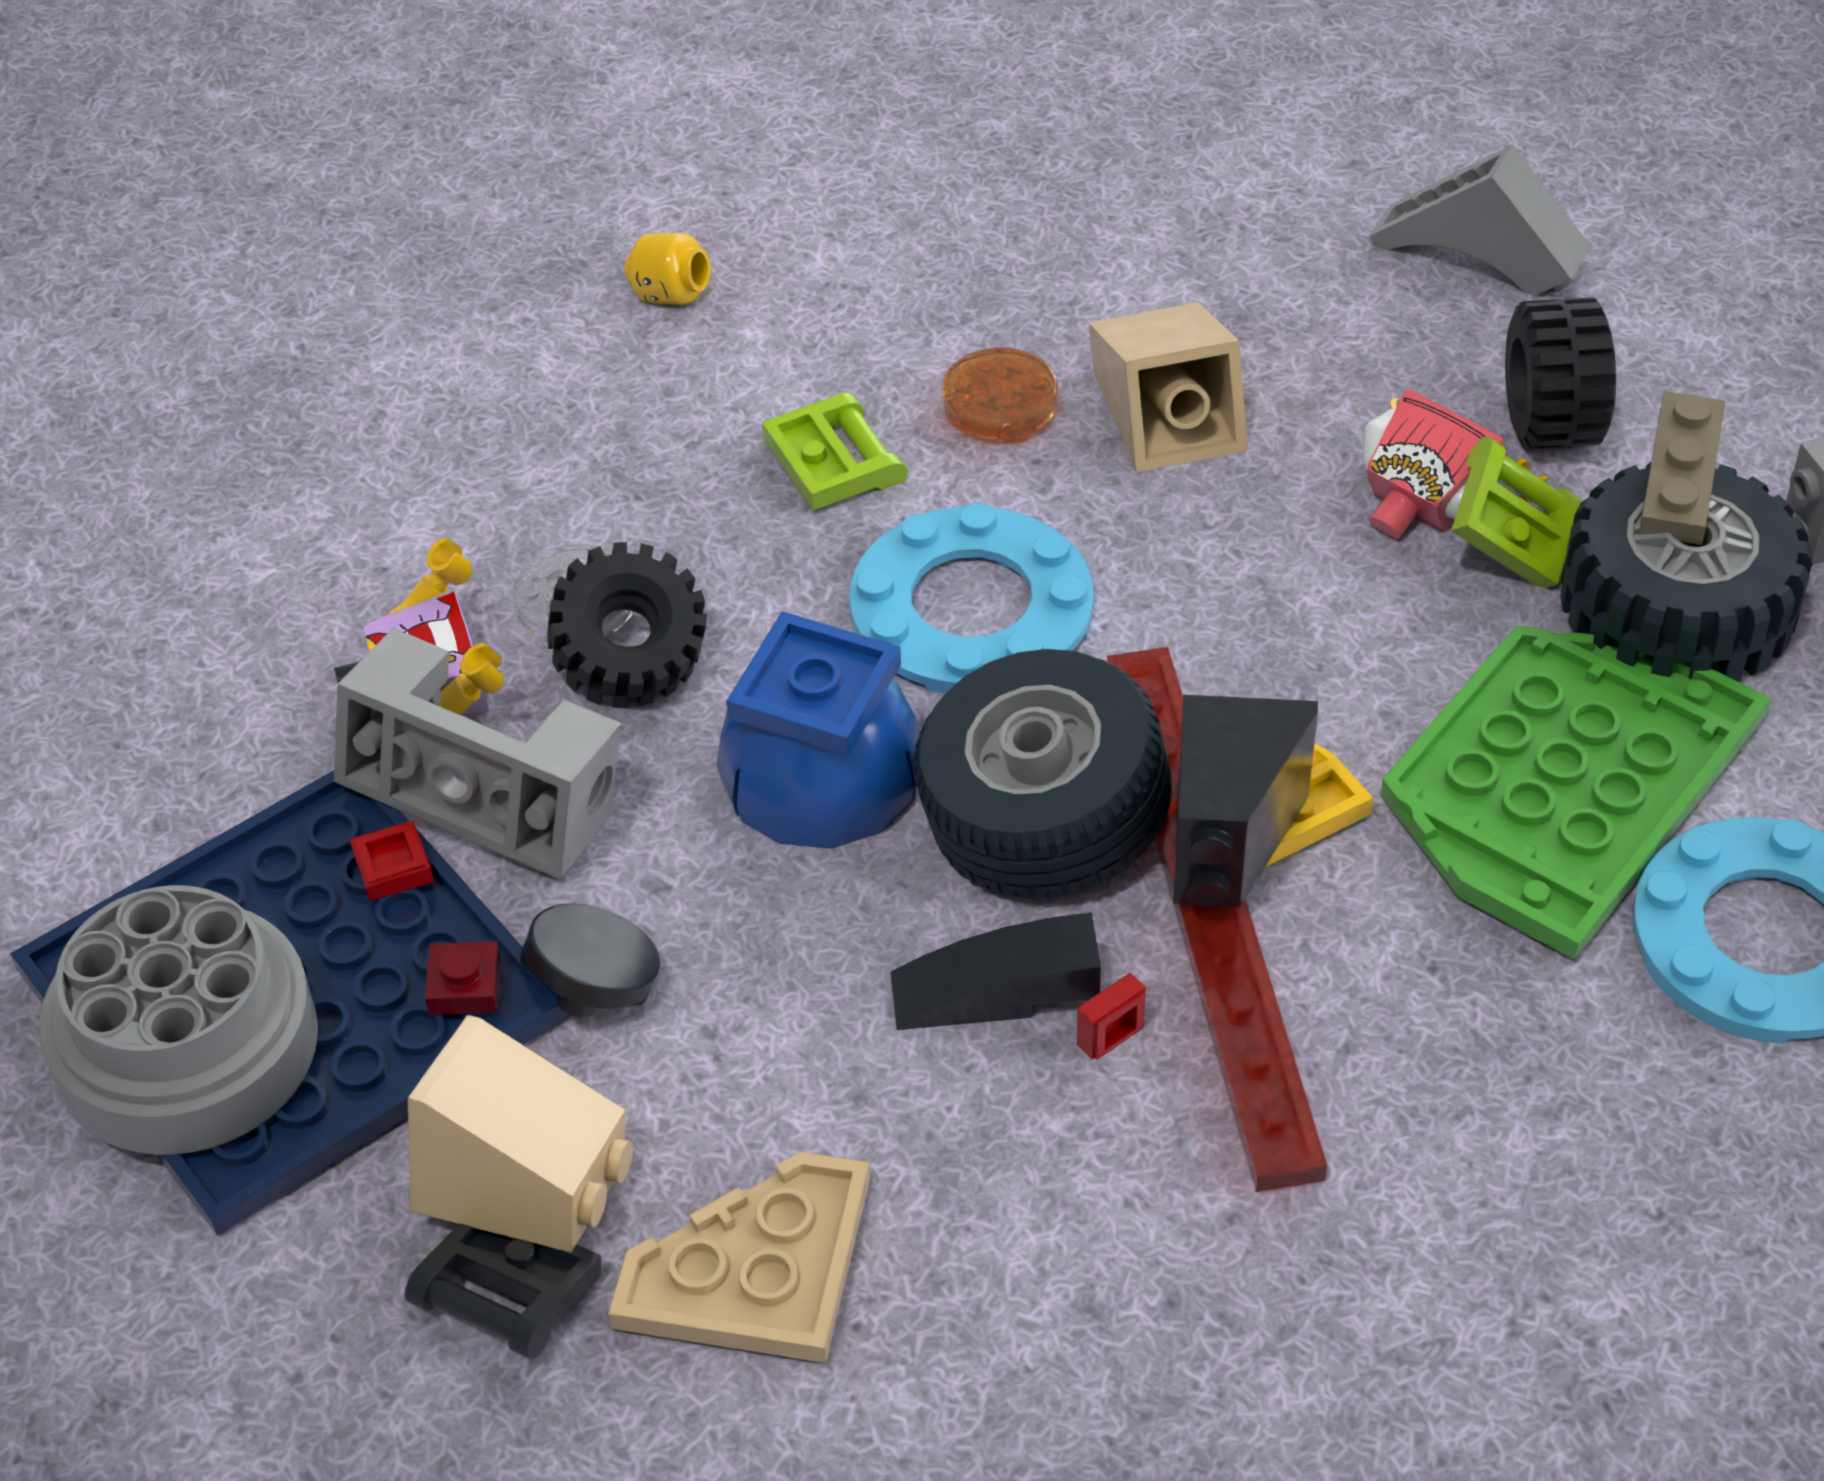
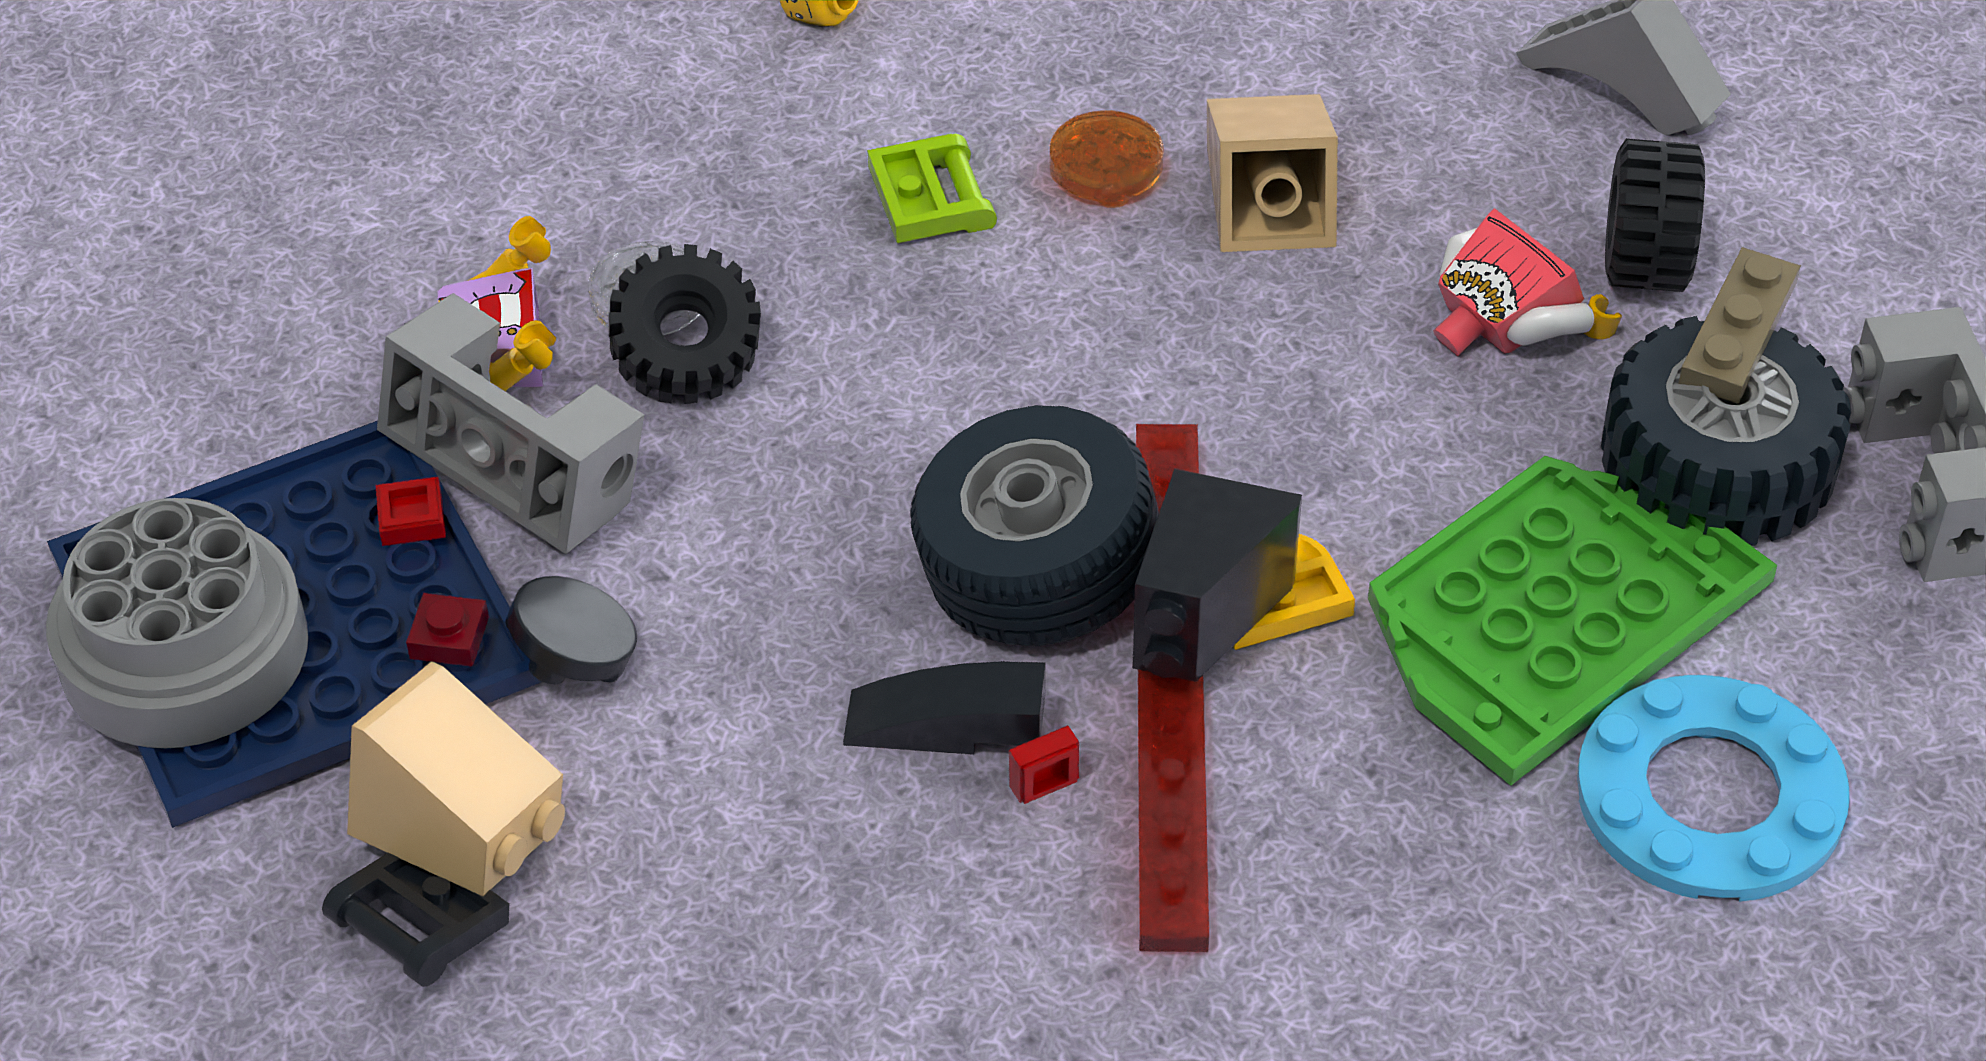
camera: 10 degrees right, 0 degrees up
(752, 1265) = (649, 936): tan plate -> none
(818, 736) = (833, 456): blue plate -> none
(898, 559) = (954, 310): medium azure plate -> none
(1508, 526) = (1559, 355): lime plate -> none

